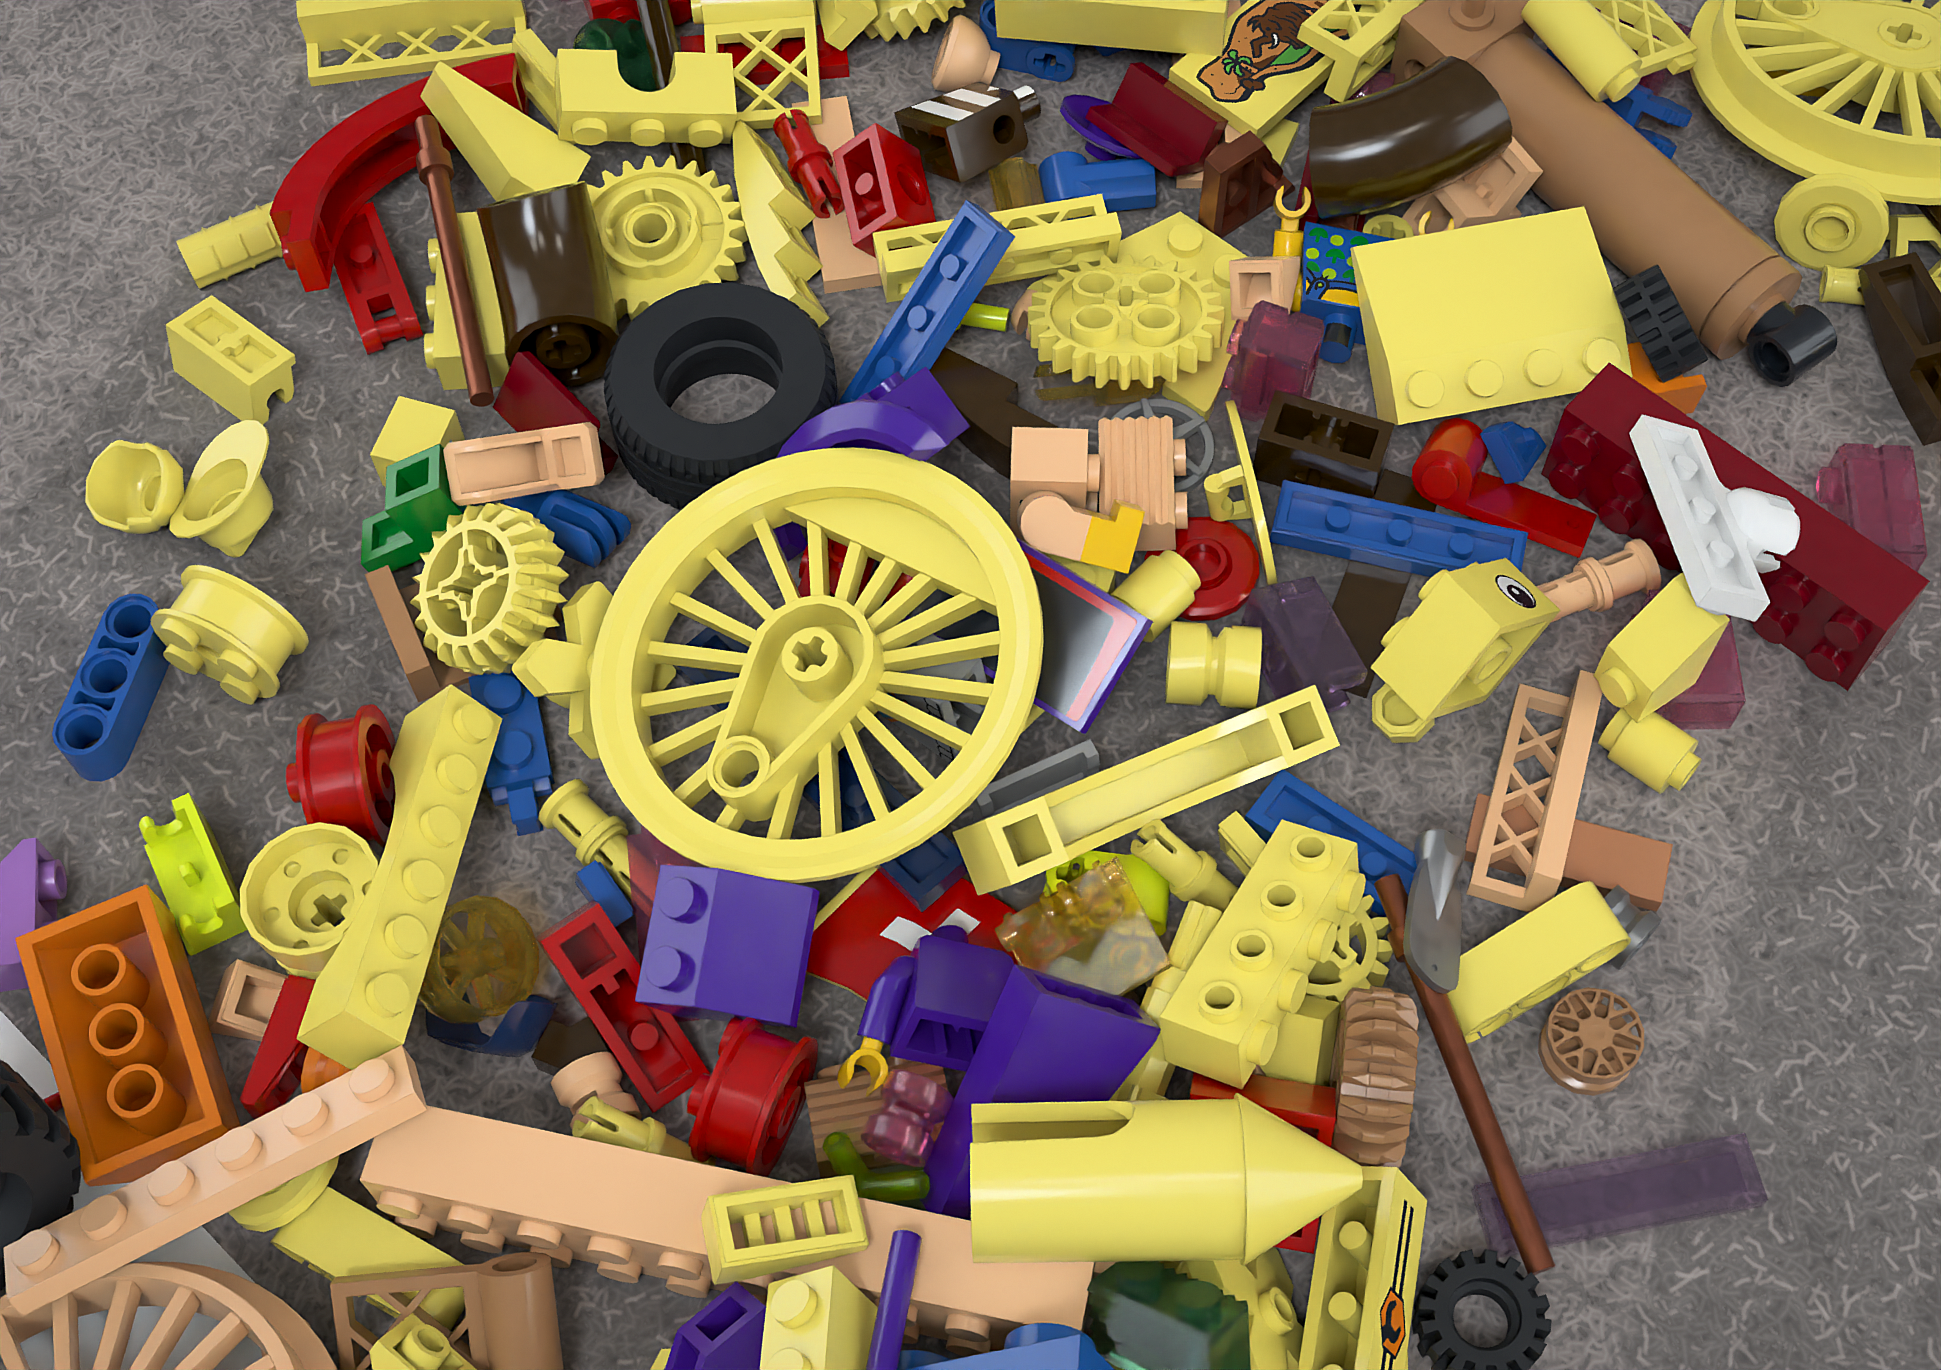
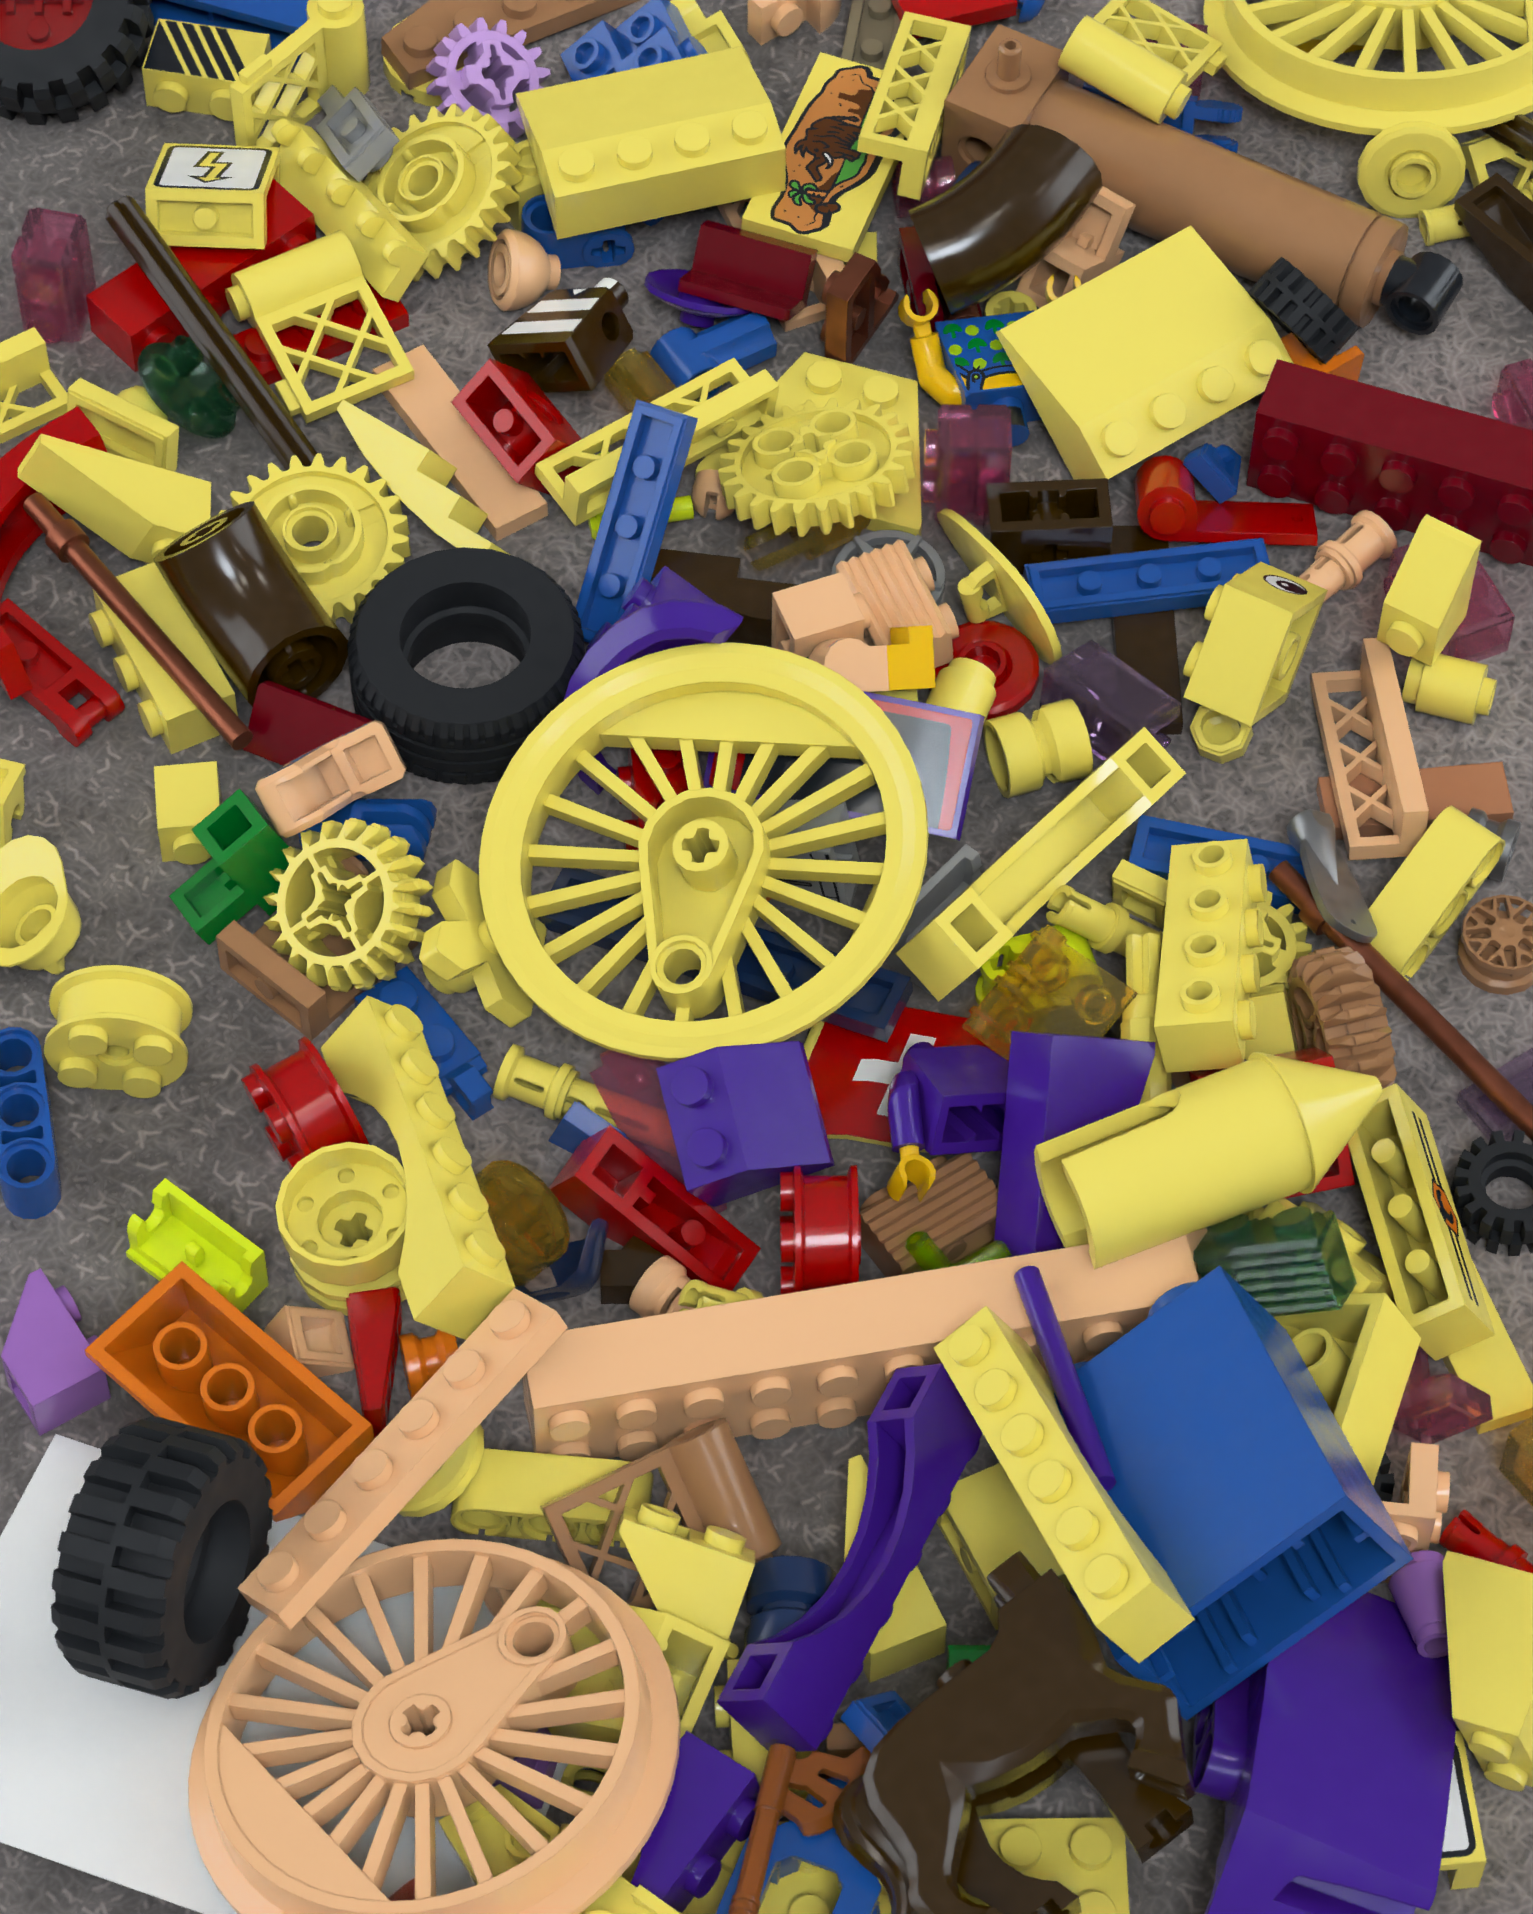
camera: 25 degrees left, 5 degrees down
(602, 107) = (207, 427): light yellow arch -> none
(760, 1259) = (887, 1332): light yellow slope -> none
(809, 163) = (428, 420): red pin -> none
(907, 1118) = (970, 1202): clear pink wheel -> none
(1262, 279) = (920, 392): light nougat slope -> none
(1713, 529) = (1434, 469): white plate -> none

